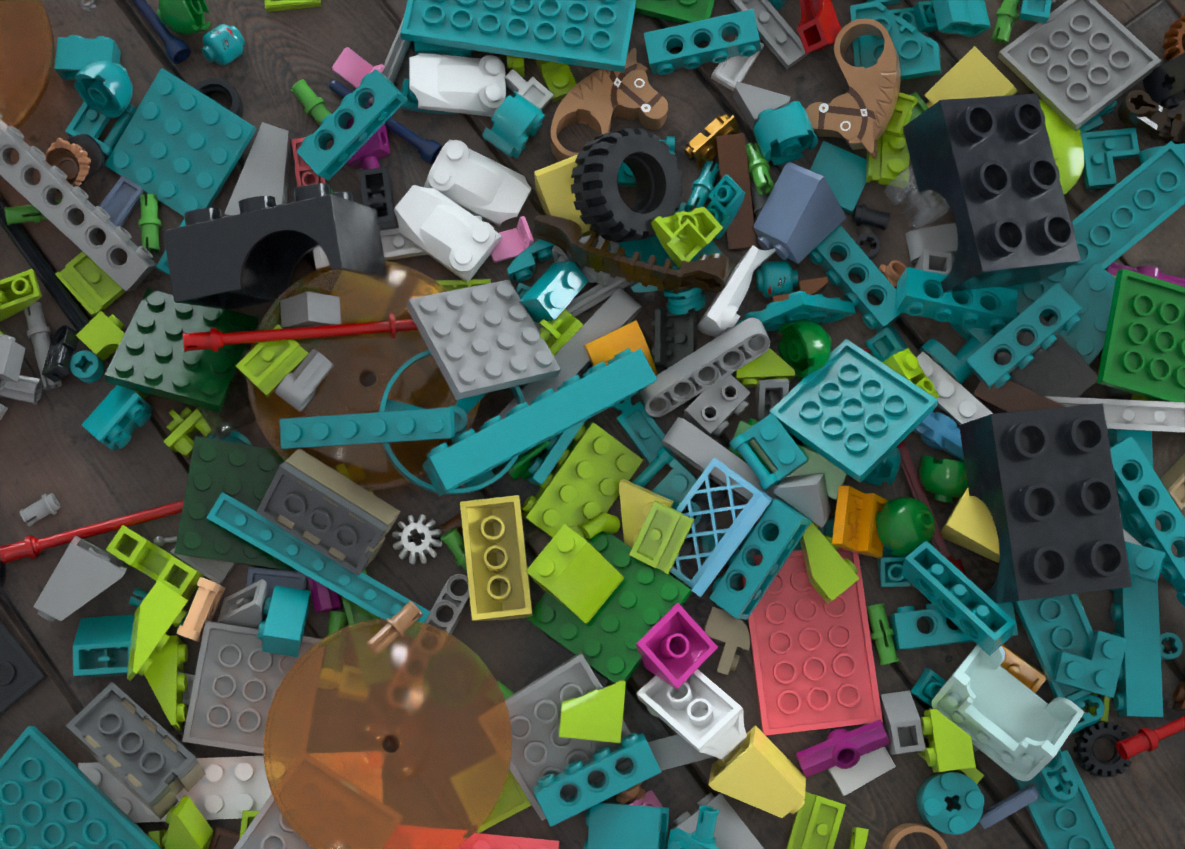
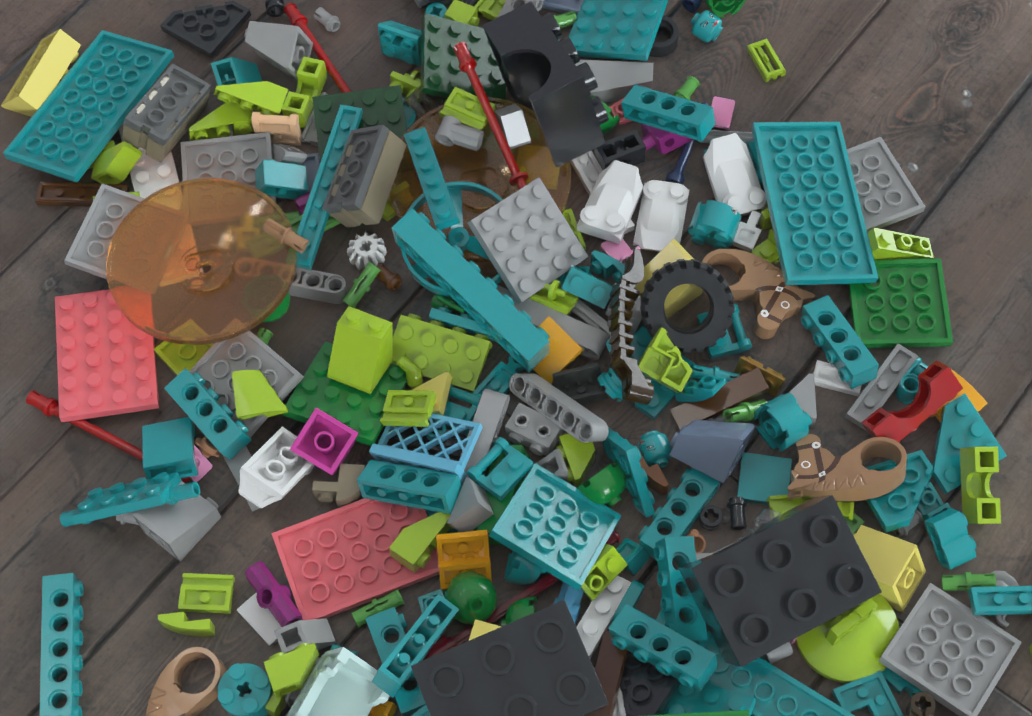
camera: 80 degrees right, 15 degrees down
(496, 559) = (378, 294): light yellow slope -> none
(722, 312) = (631, 413): white slope -> none
(760, 776) = (235, 533): light yellow slope -> none

